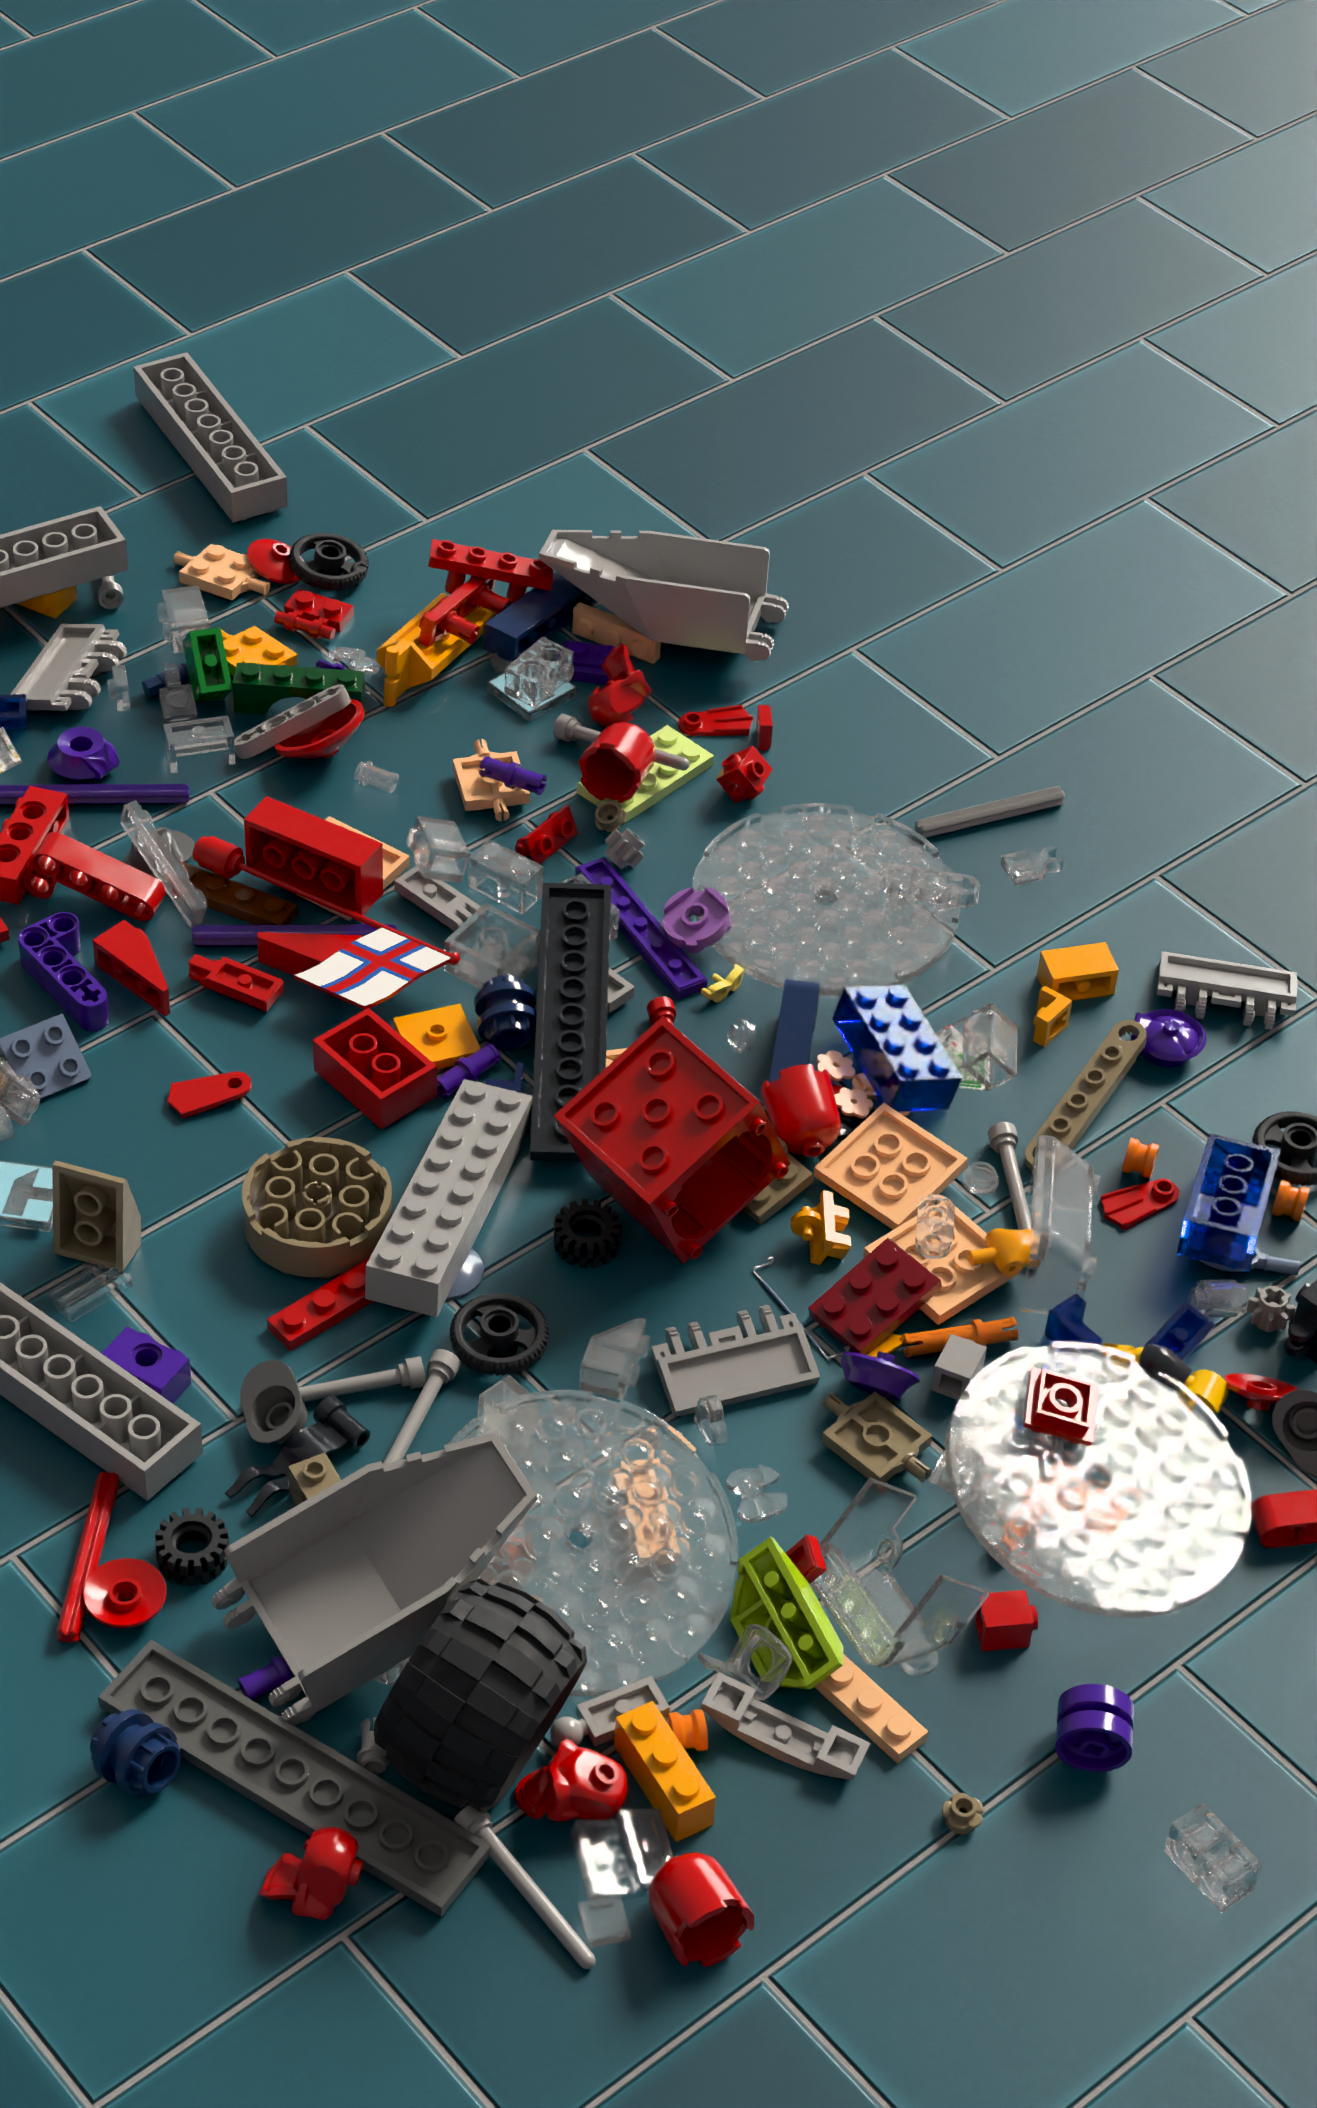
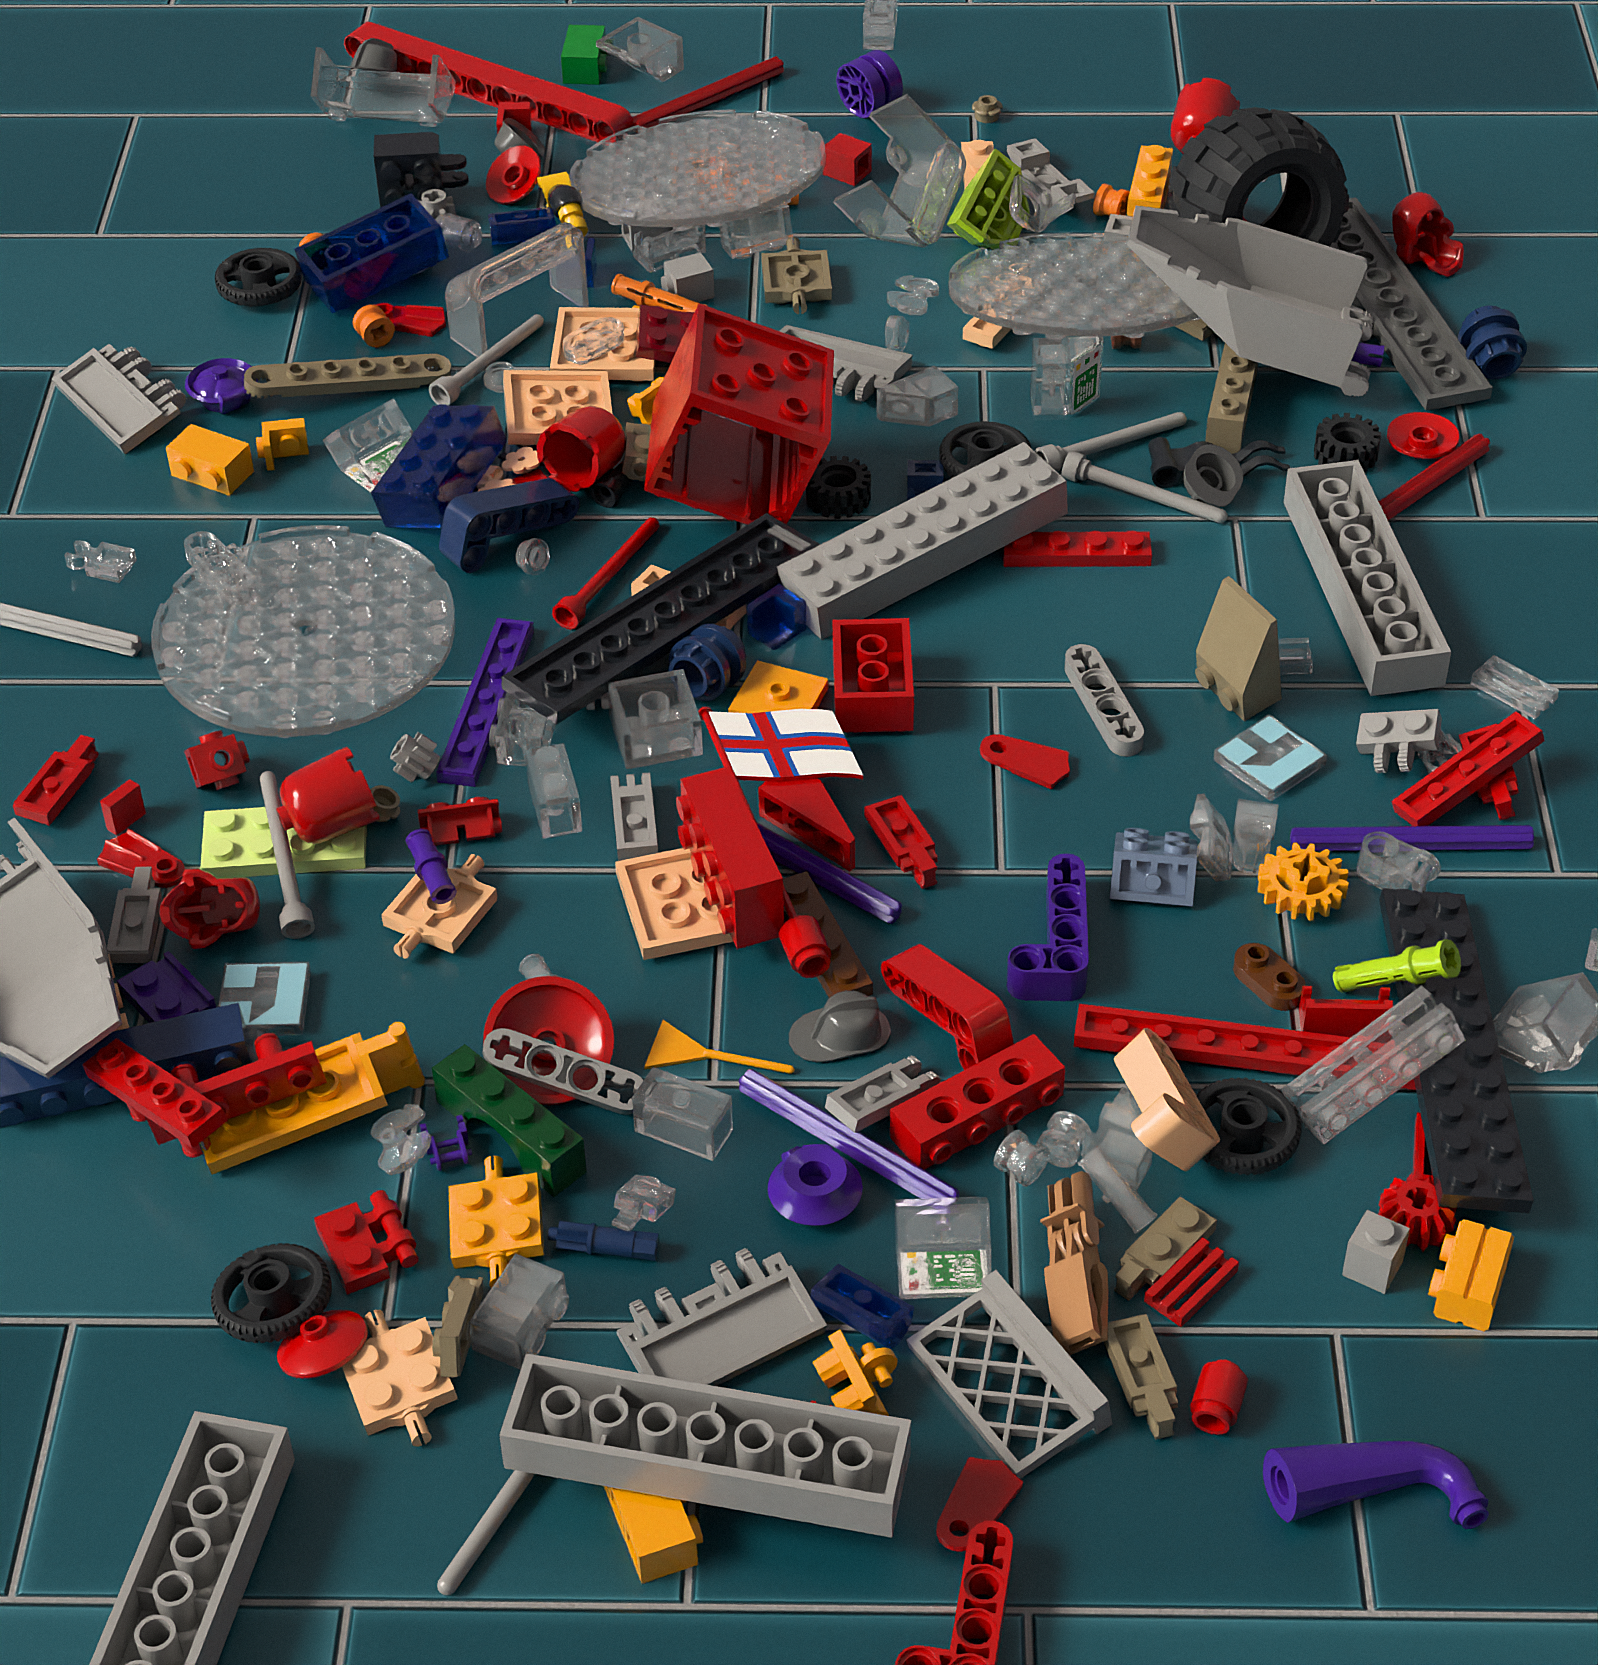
camera: 135 degrees left, 0 degrees up
(89, 807) = (876, 1093): none -> light grey hinge
(118, 688) = (689, 1252): clear plate -> none
(130, 960) = (984, 906): red slope -> none
(150, 1362) = (1283, 563): dark purple brick -> none
(158, 856) = (870, 958): clear plate -> none
(189, 1175) = (1109, 698): none -> light grey beam
(207, 665) = (581, 1186): green brick -> none
(217, 606) = (454, 1338): none -> dark tan hinge
(249, 796) = (675, 1047): none -> light orange piece
(316, 1206) = (1036, 594): dark tan brick -> none
(438, 849) = (587, 838): clear brick -> none
(468, 1069) = (788, 651): dark purple pin -> none
(514, 1276) = (923, 476): none -> dark blue slope
(539, 672) = (254, 973): clear brick -> none
(667, 682) = (135, 920): none -> light grey hinge
(698, 934) = (457, 663): medium lavender plate -> none
(719, 990) = (477, 608): light yellow piece -> none
(808, 1558) = (934, 238): red tile -> none
(828, 724) = (57, 782): none -> red hinge
(877, 1374) = (752, 289): dark purple piece -> none
(1006, 1249) = (565, 302): light orange piece -> none
(1047, 1416) = (683, 175): red piece -> none
(1250, 1641) = (712, 92): none -> red axle

